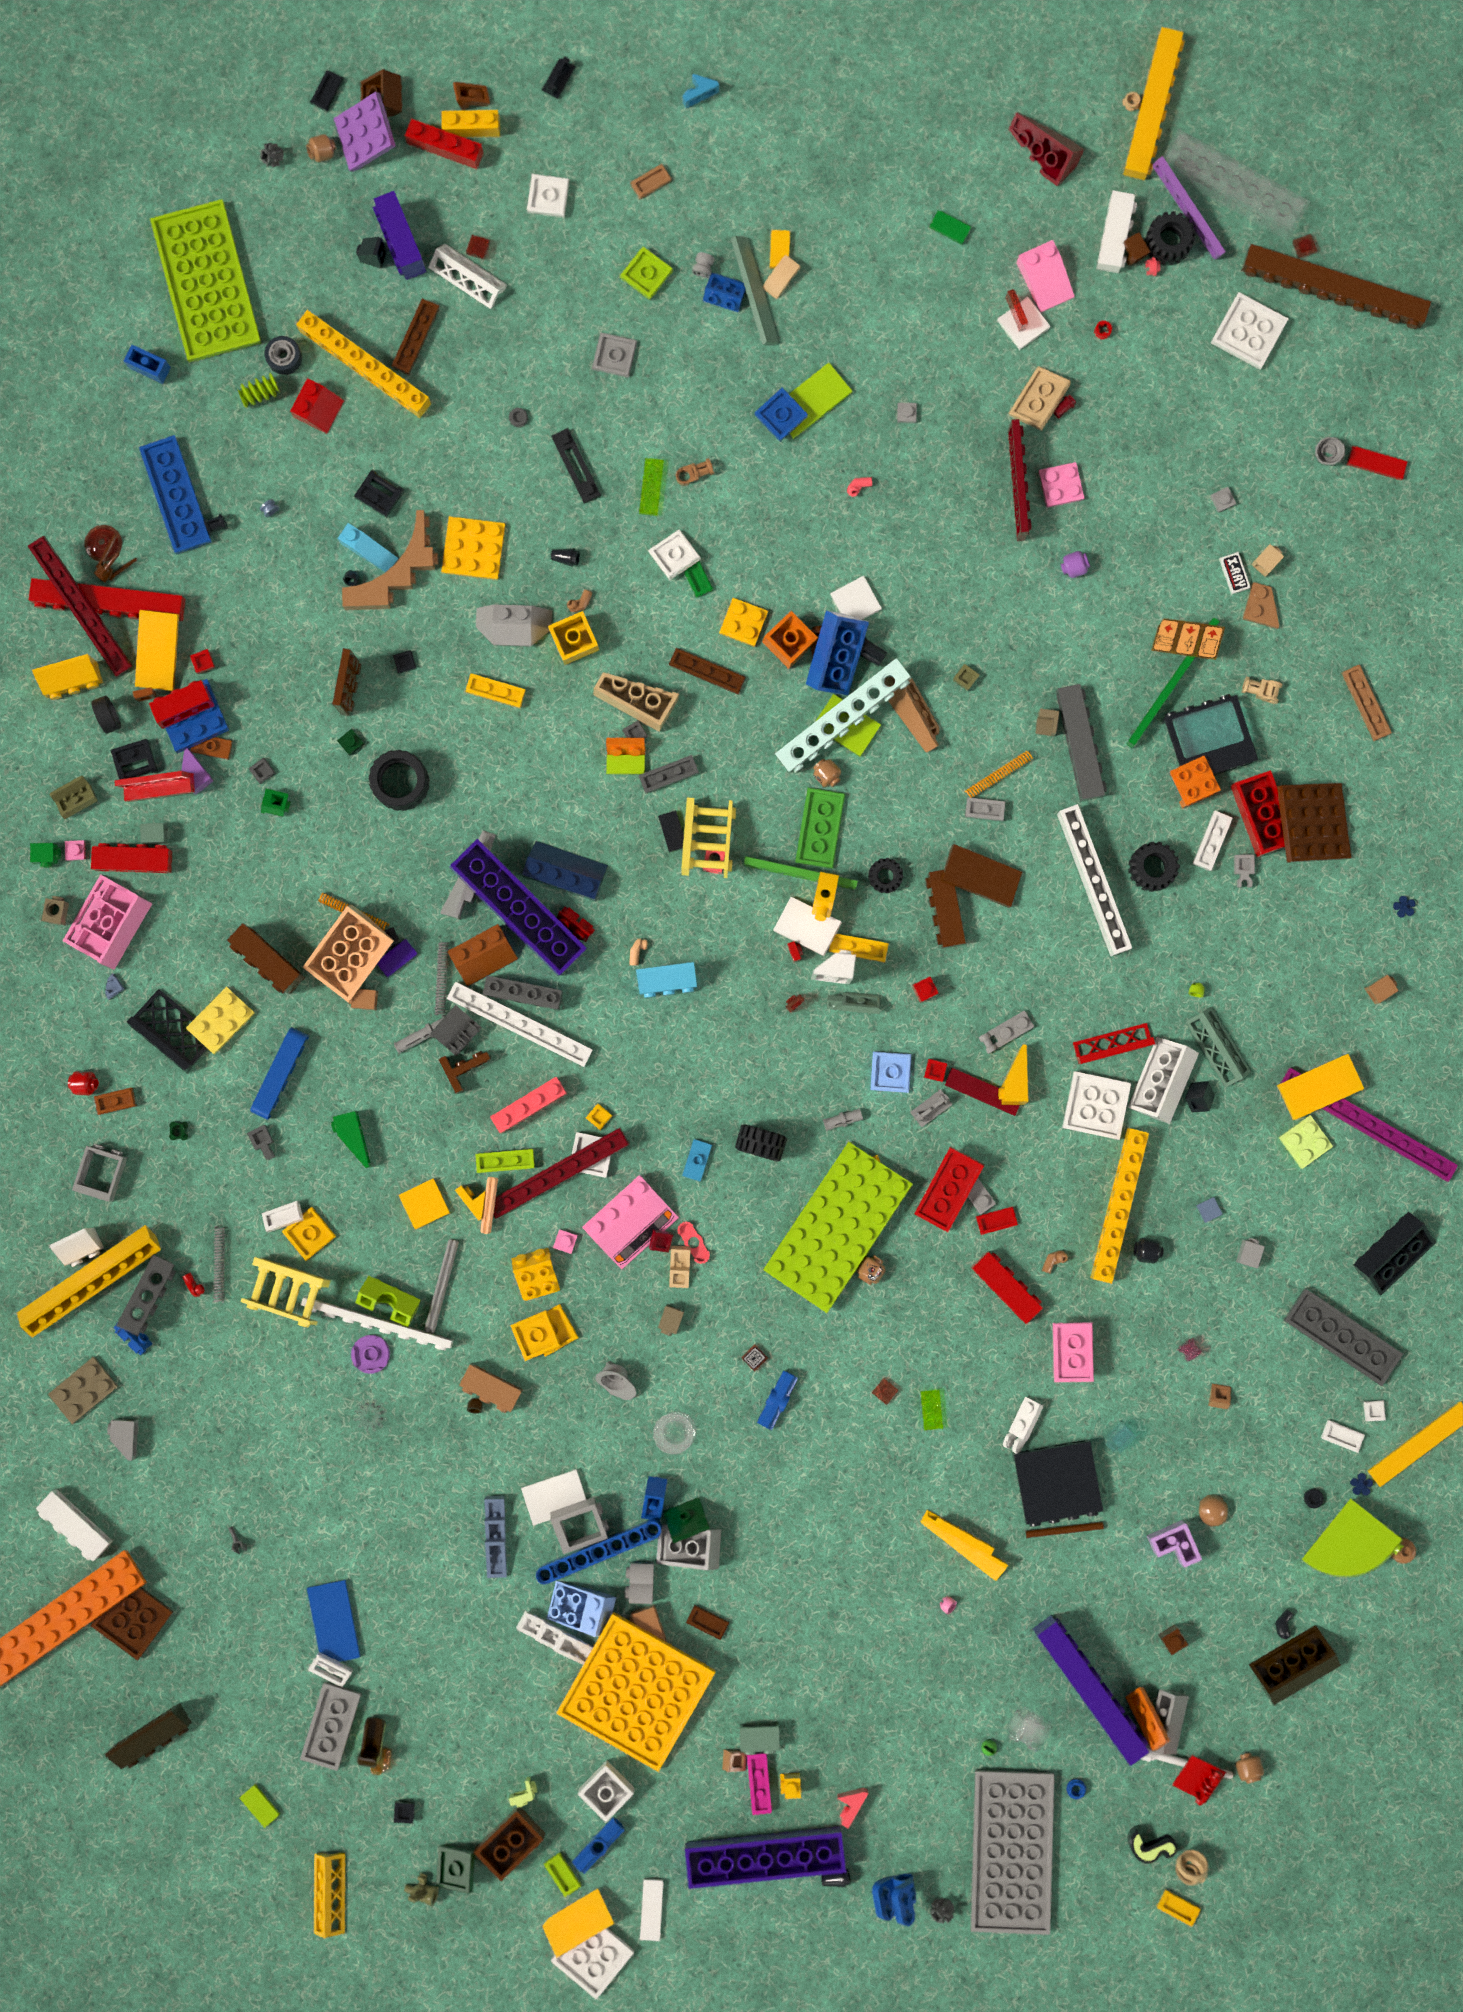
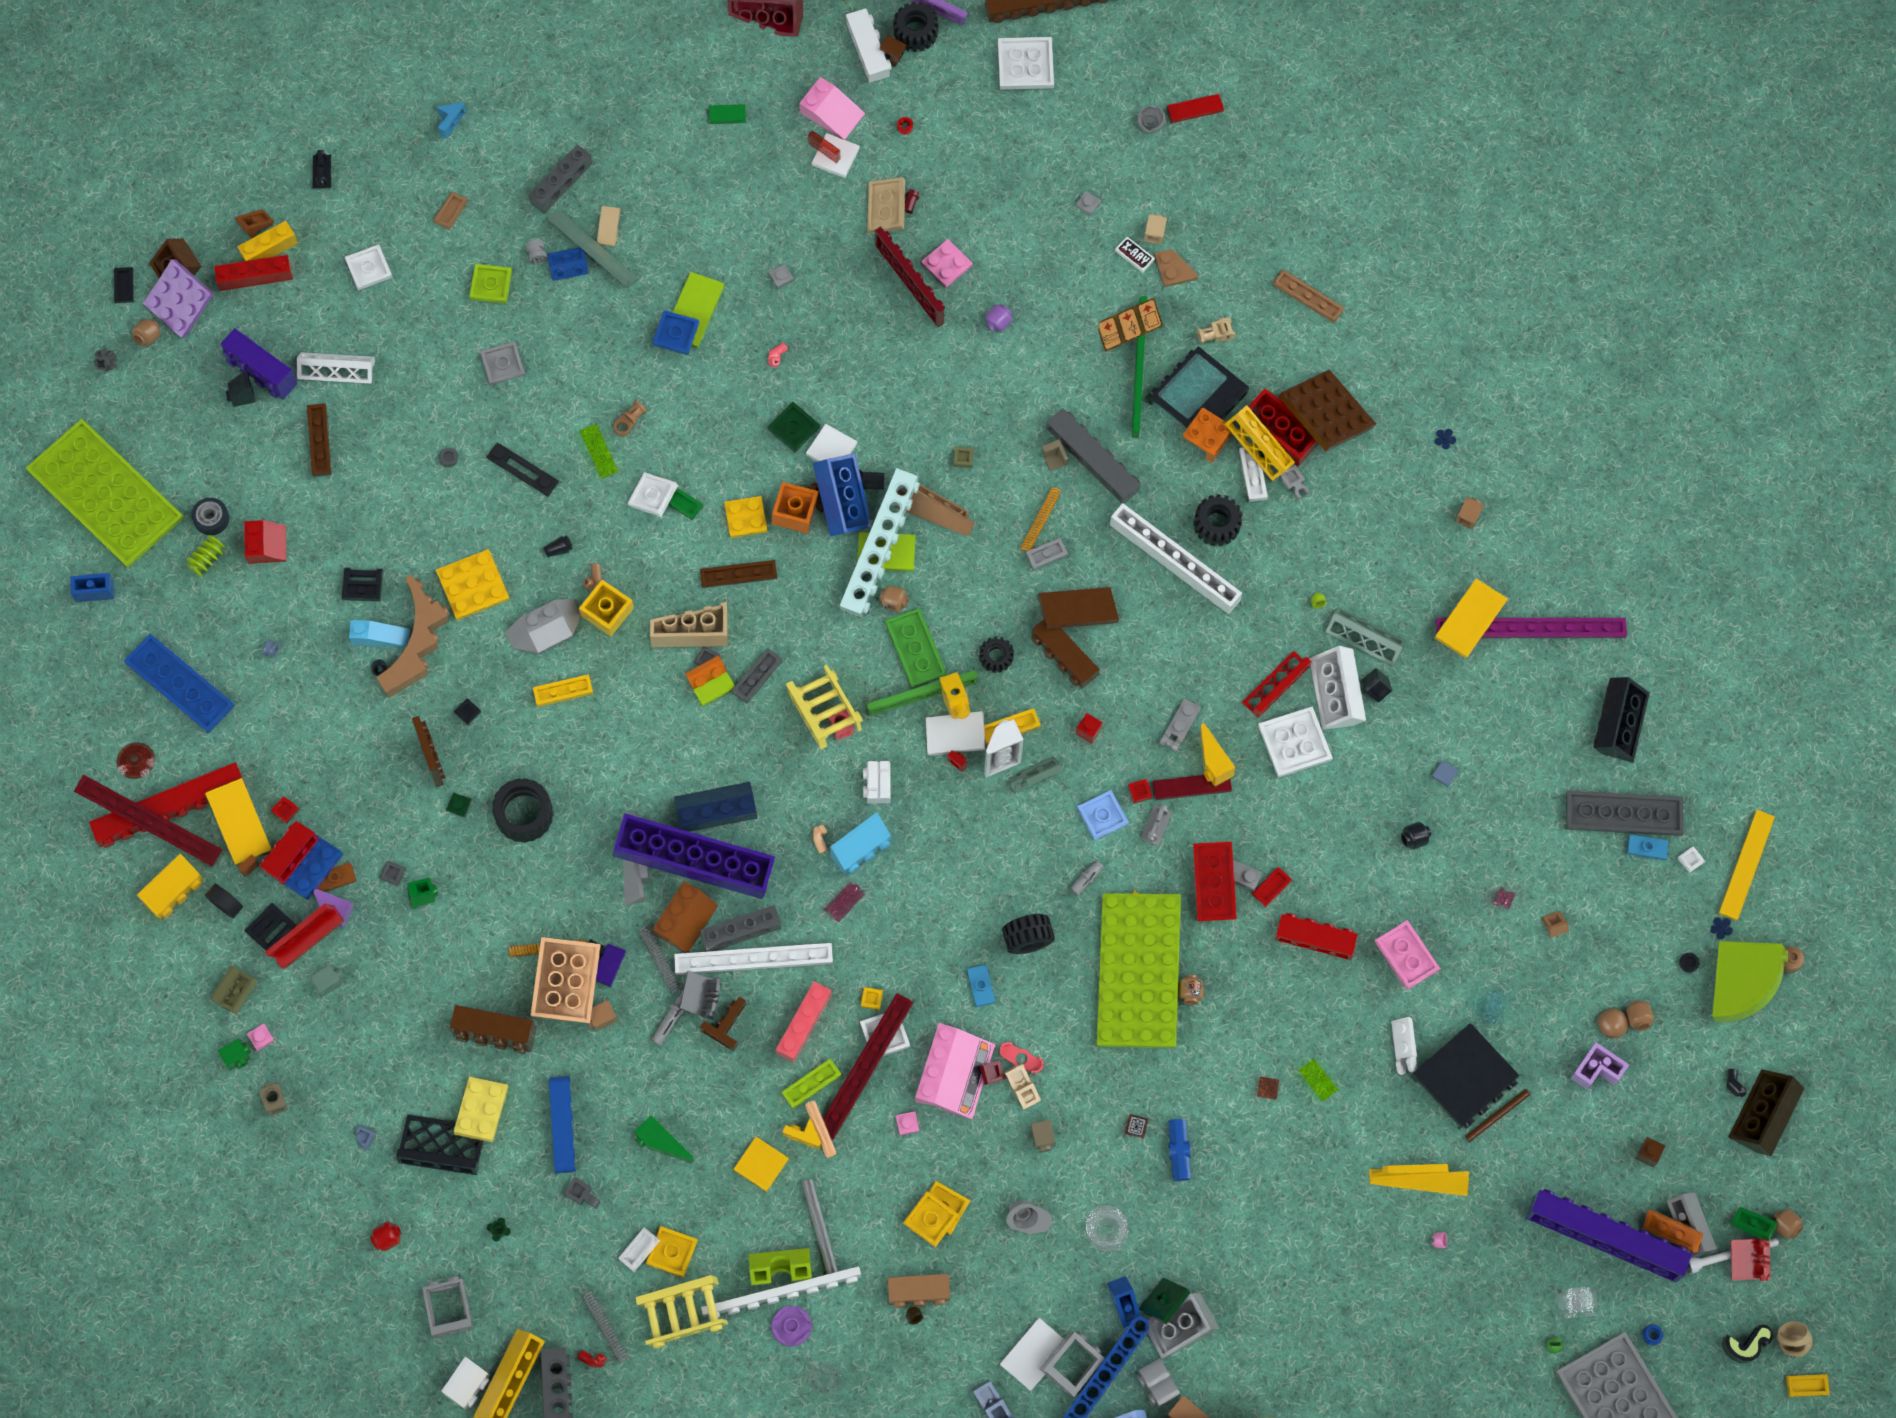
camera: 35 degrees left, 15 degrees down
(104, 571) = (152, 780): reddish brown plant -> none
(107, 922) = (327, 1082): bright pink piece -> none
(115, 1101) = (424, 1236): dark orange plate -> none
(131, 858) = (318, 1014): red brick -> none
(215, 524) = (230, 687): black bush -> none
(363, 364) = (286, 485): yellow brick -> none
(478, 247) = (331, 339): clear red plate -> none
(535, 1274) = (898, 1166): yellow bracket -> none
(580, 930) = (759, 844): red hinge -> none
(625, 1019) = (844, 901): none -> clear pink hinge
(672, 830) = (789, 721): black tile -> none
(707, 1622) = (1239, 1384): reddish brown tile -> none
(715, 931) = (877, 782): none -> white brick
(764, 206) = (560, 179): none -> dark grey brick
(779, 246) = (592, 204): yellow tile -> none
(793, 1002) = (983, 803): clear red plate -> none
(833, 562) = (793, 427): none -> dark green plate
(1052, 1259) = (1340, 891): medium nougat arm -> none
(1119, 1205) = (1367, 812): yellow brick -> none
(1154, 266) = (916, 54): coral plate -> none
(1221, 1752) = (1754, 1224): none -> green plate
(1237, 819) = (1262, 441): none -> yellow fence
(1240, 1519) = (1640, 1015): none -> medium nougat head
(1250, 1253) = (1502, 788): light grey brick -> none
(1305, 1142) = (1488, 672): yellowish green plate -> none
(1342, 1436) = (1679, 896): white tile -> none
(1343, 1377) = (1647, 847): none -> dark azure plate

